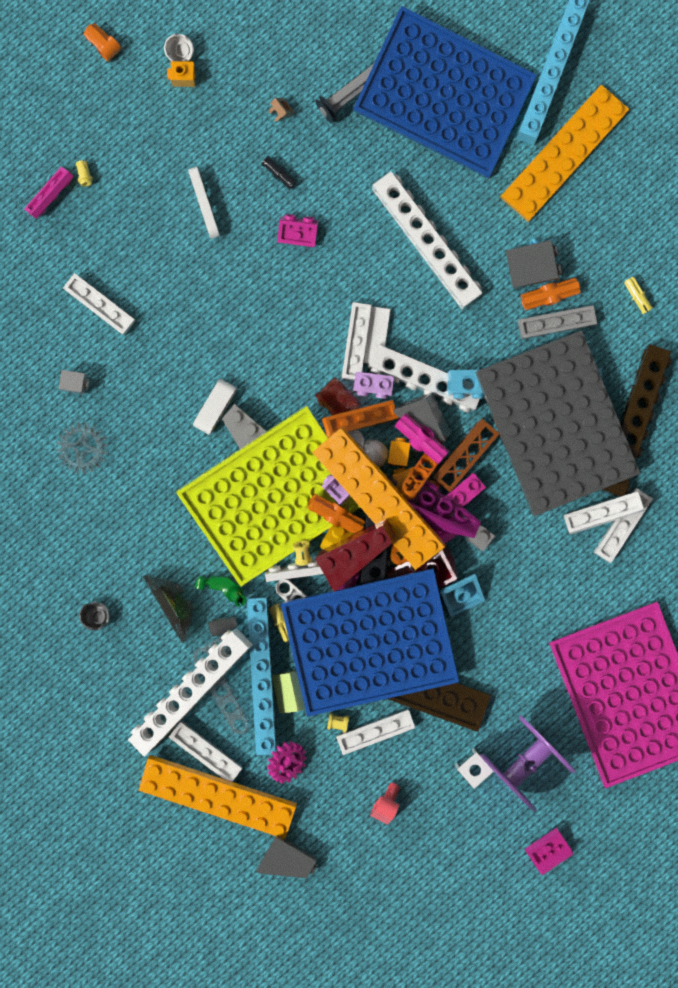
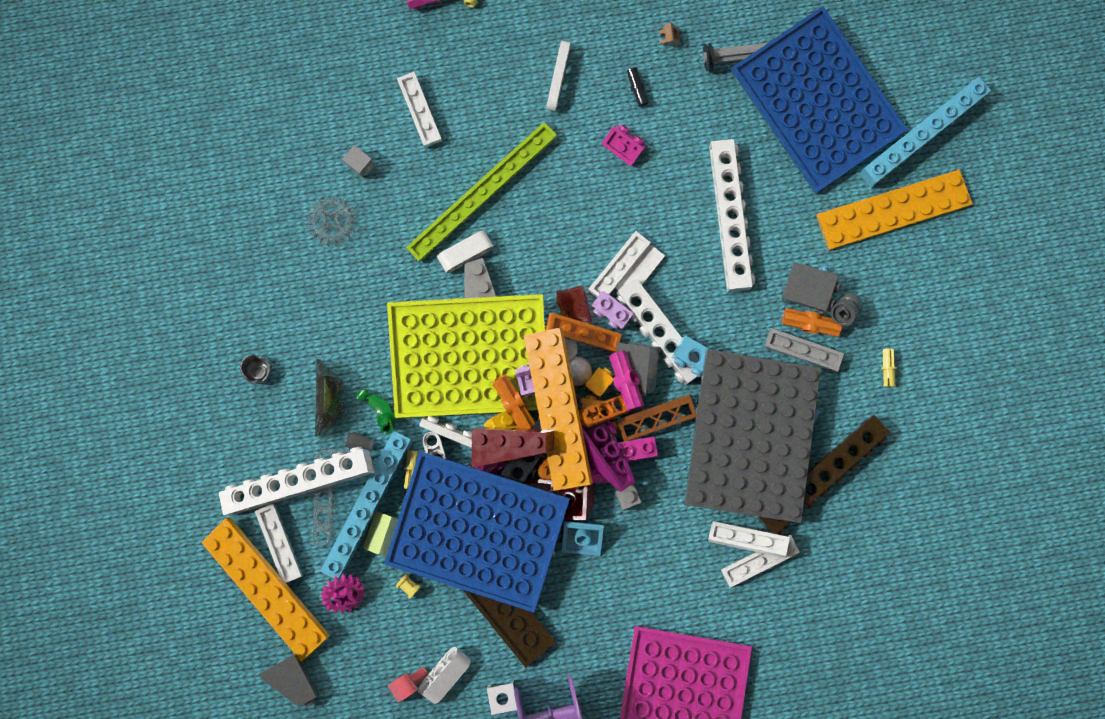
camera: 30 degrees right, 5 degrees down
(197, 345) = (481, 192): none -> lime plate
(299, 556) = (462, 425): light yellow bush -> none
(375, 732) = (436, 614): white plate -> none
(413, 778) = (444, 675): none -> white beam
(574, 265) = (846, 309): none -> dark grey wheel

